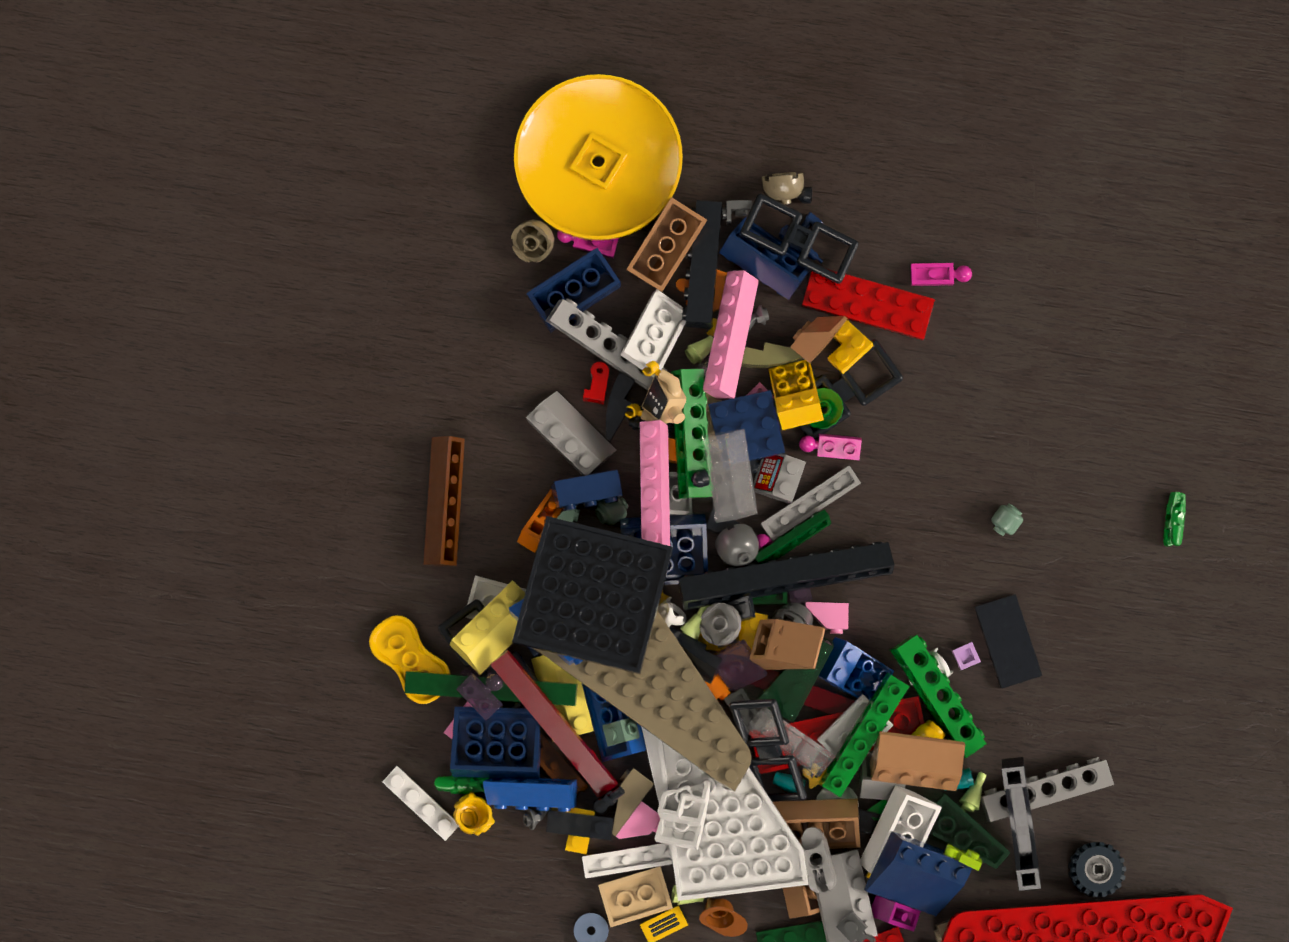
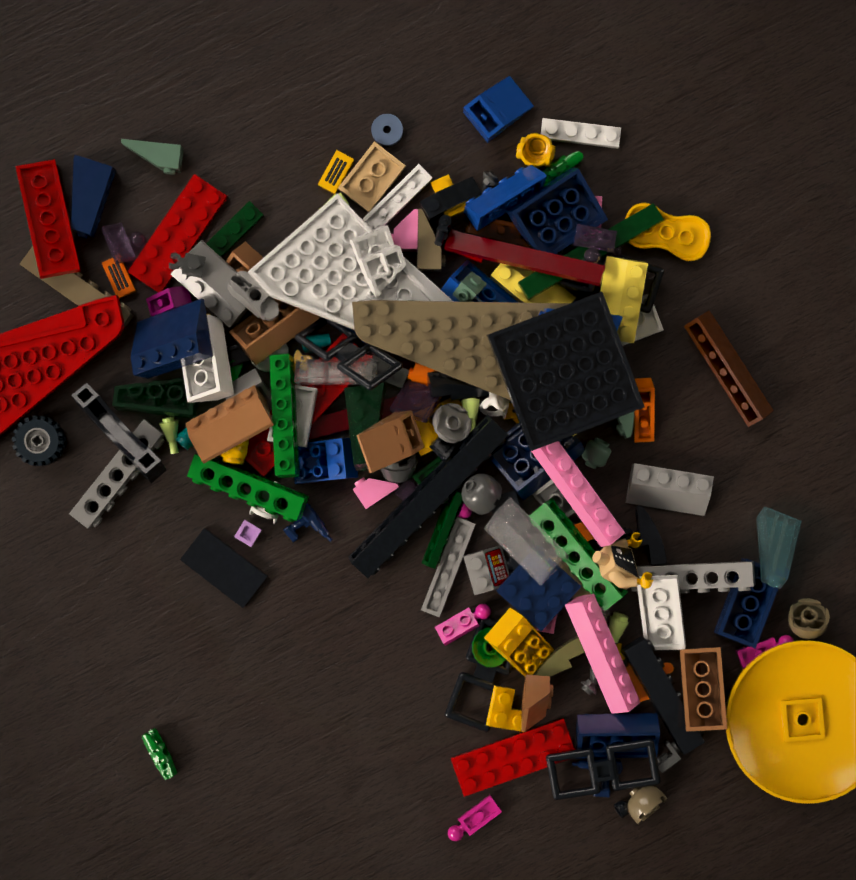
camera: 150 degrees right, 5 degrees up
(478, 877) = (497, 108): none -> blue slope
(515, 320) = (776, 545): none -> clear light blue slope
(587, 490) = (626, 452): dark blue slope -> none
(599, 383) = (676, 544): red leg -> none
(700, 478) = (546, 522): black hinge -> none
(722, 918) = (297, 207): dark orange piece -> none
(902, 631) = (308, 518): none -> dark blue piece
(968, 858) = (141, 377): lime plate -> none
(1007, 519) = (288, 661): sand green head -> none

